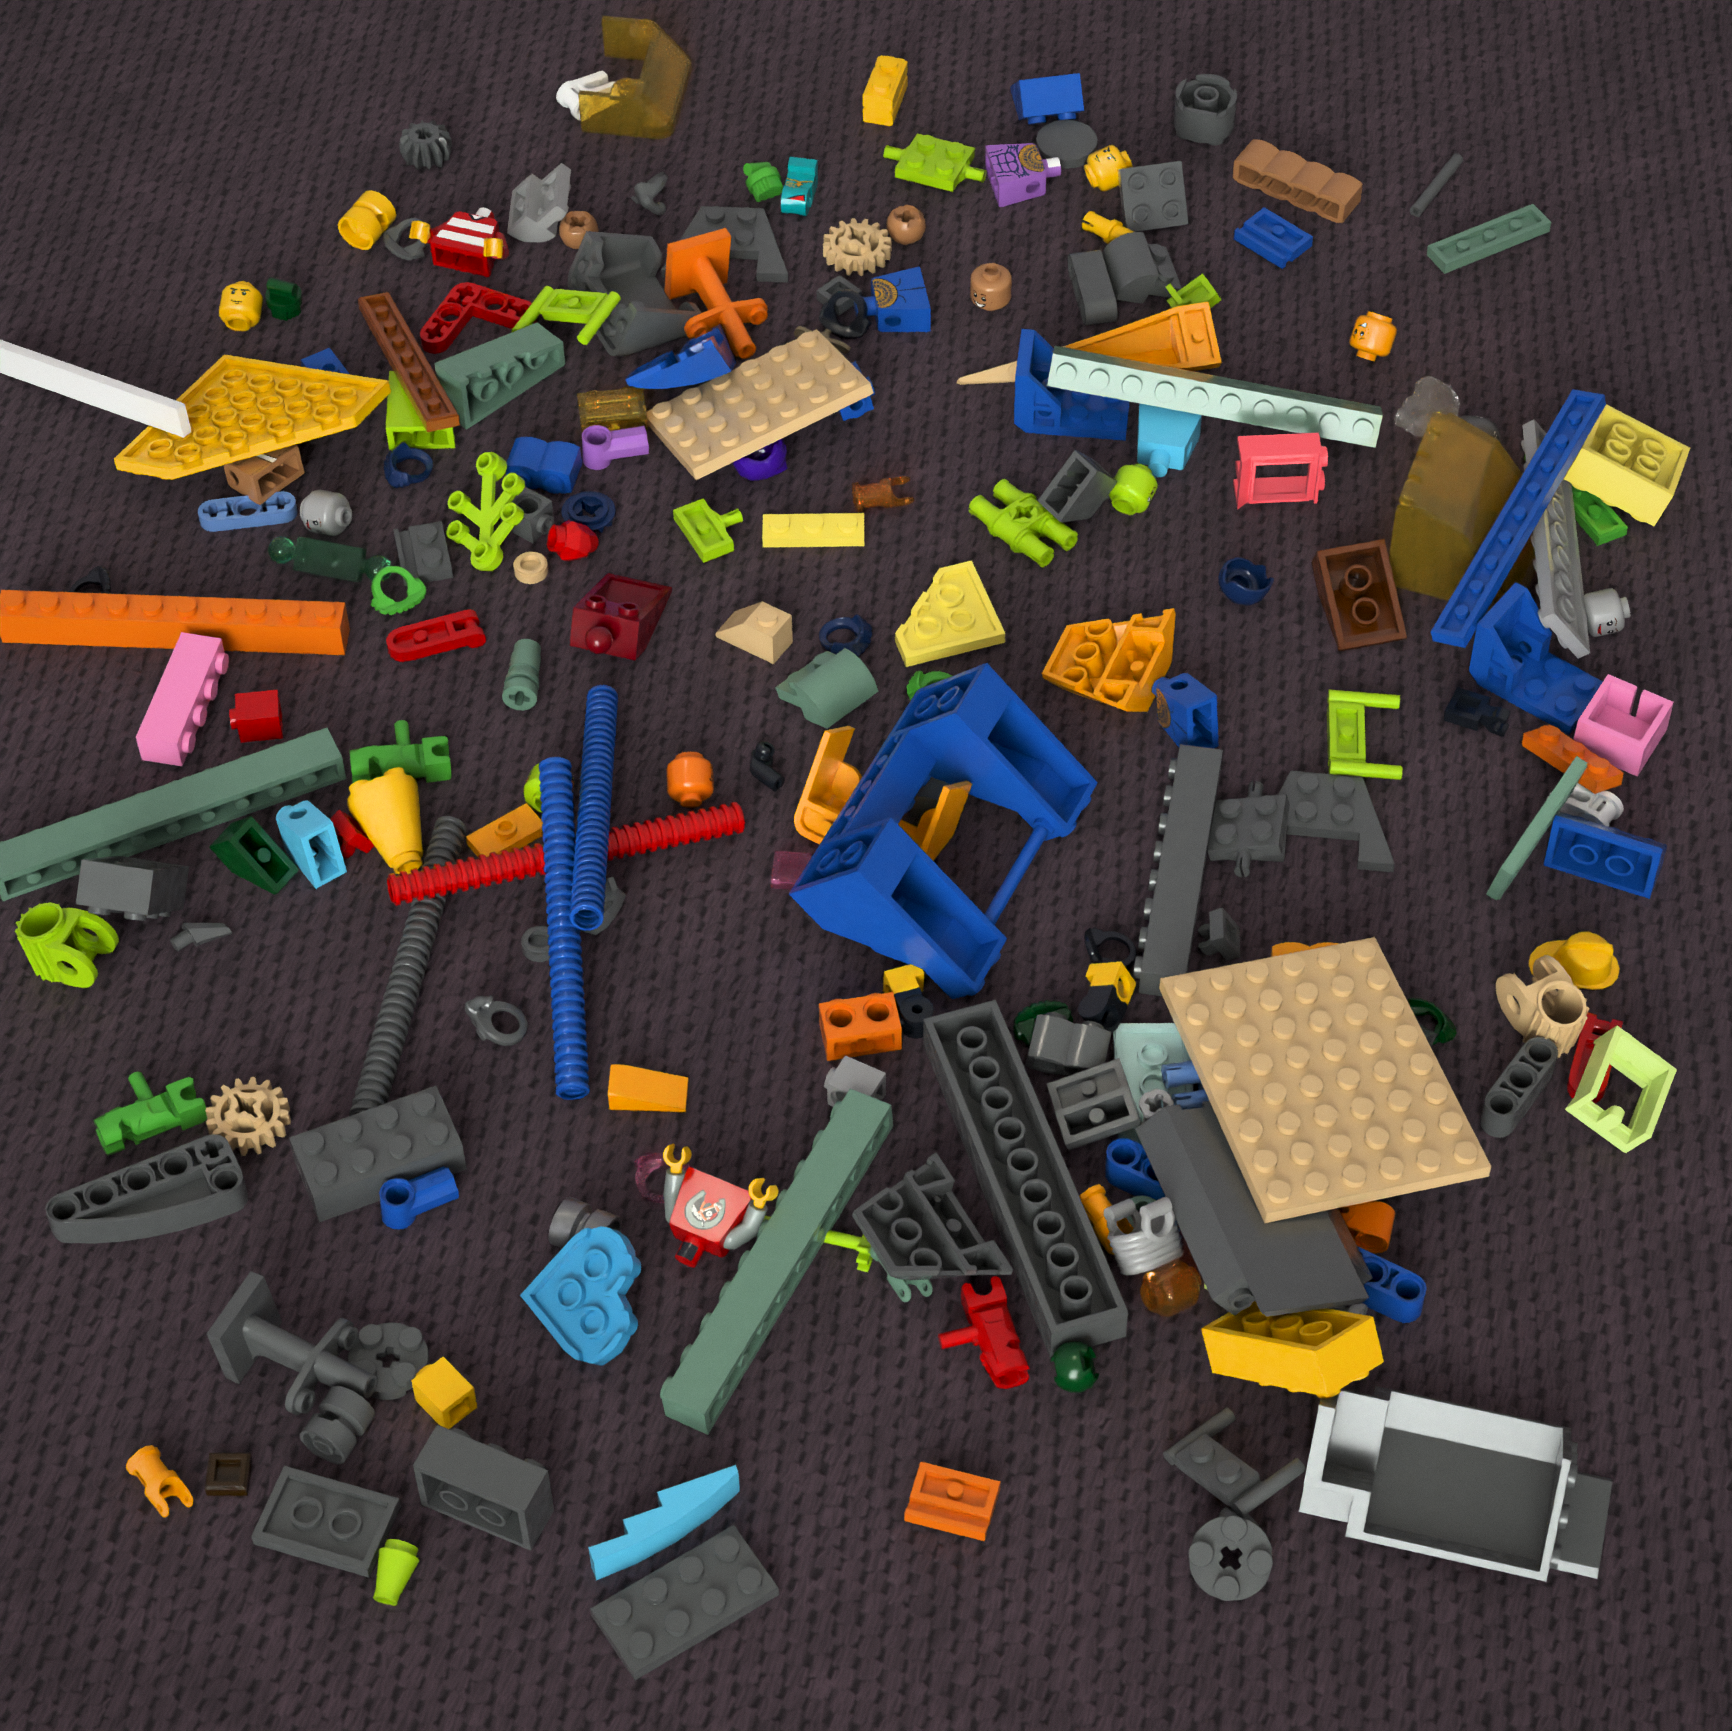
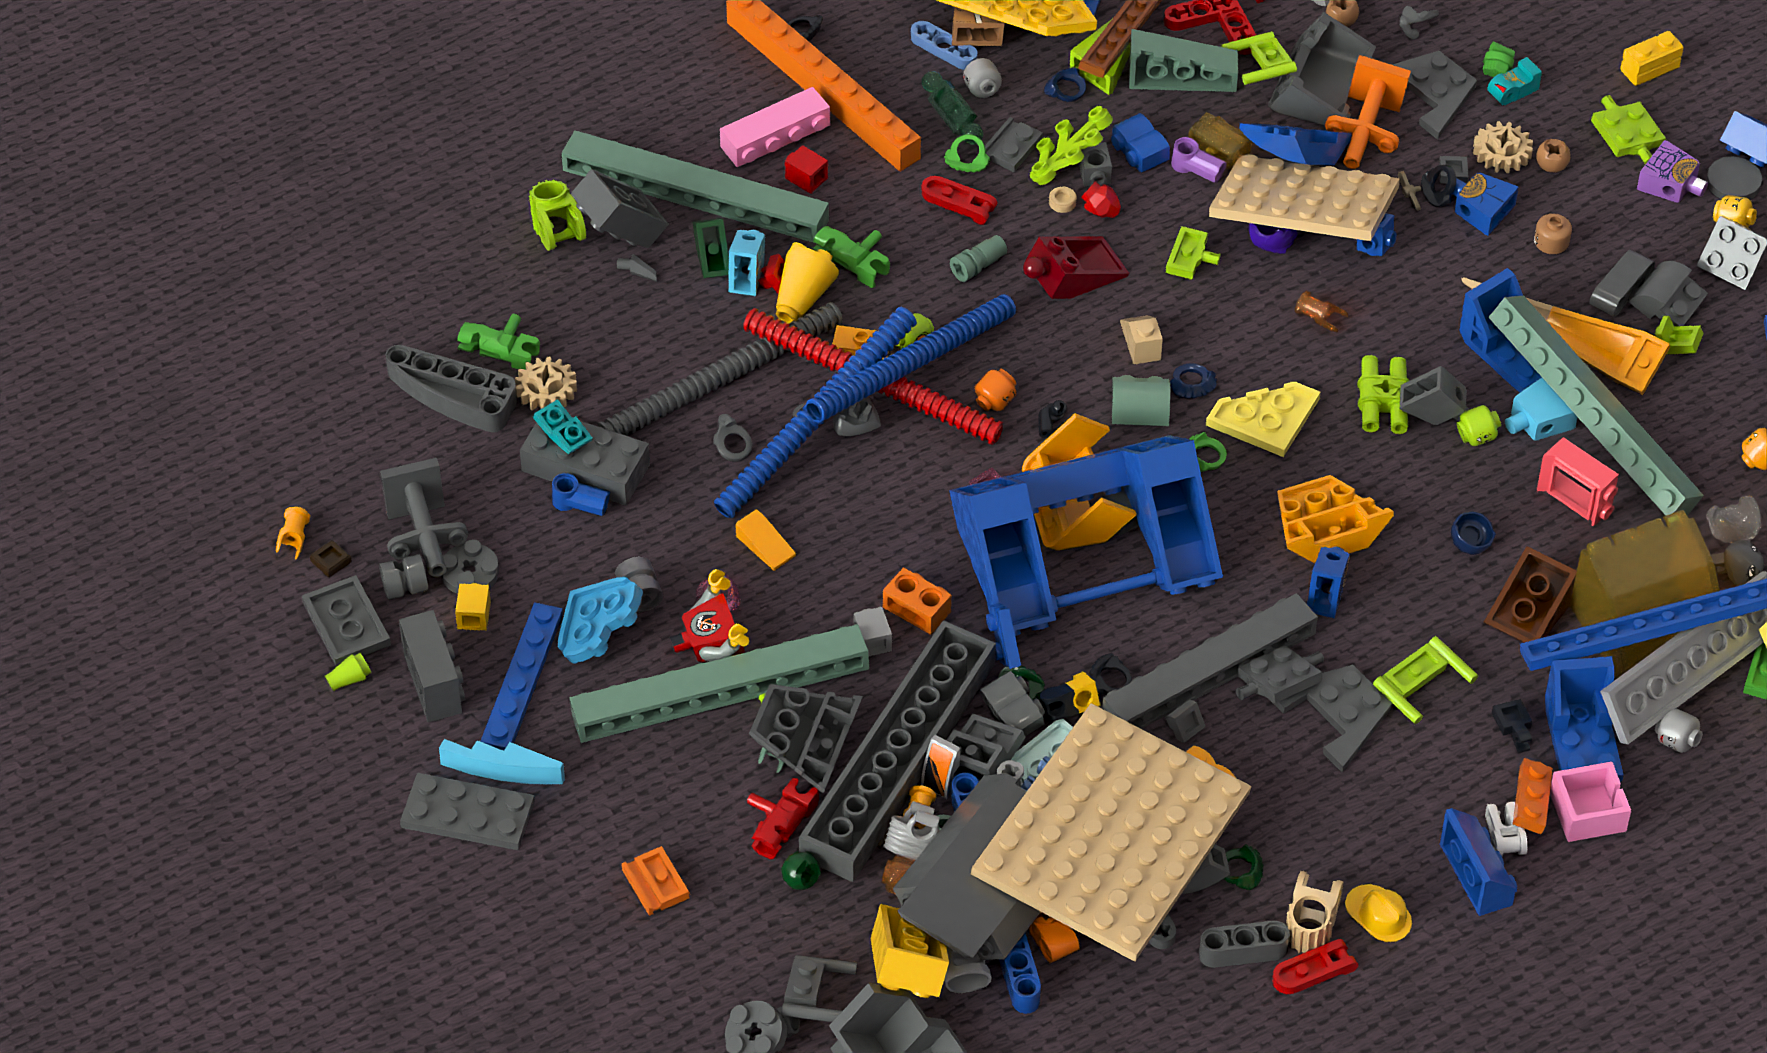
camera: 45 degrees right, 0 degrees up
(332, 1139) = (562, 428): none -> teal slope
(575, 1422) = (522, 676): none -> blue plate
(593, 503) = (1126, 185): dark blue gear -> none
(813, 530) = (1255, 303): light yellow plate -> none
(912, 1007) = (963, 605): leg -> none
(987, 981) = (1006, 646): none -> blue plate
(1084, 1153) = (940, 765): none -> slope
(1104, 227) = (1684, 253): yellow pin -> none
(1537, 829) = (1430, 811): sand green tile -> none
(1641, 1067) = (1323, 973): yellowish green window -> none

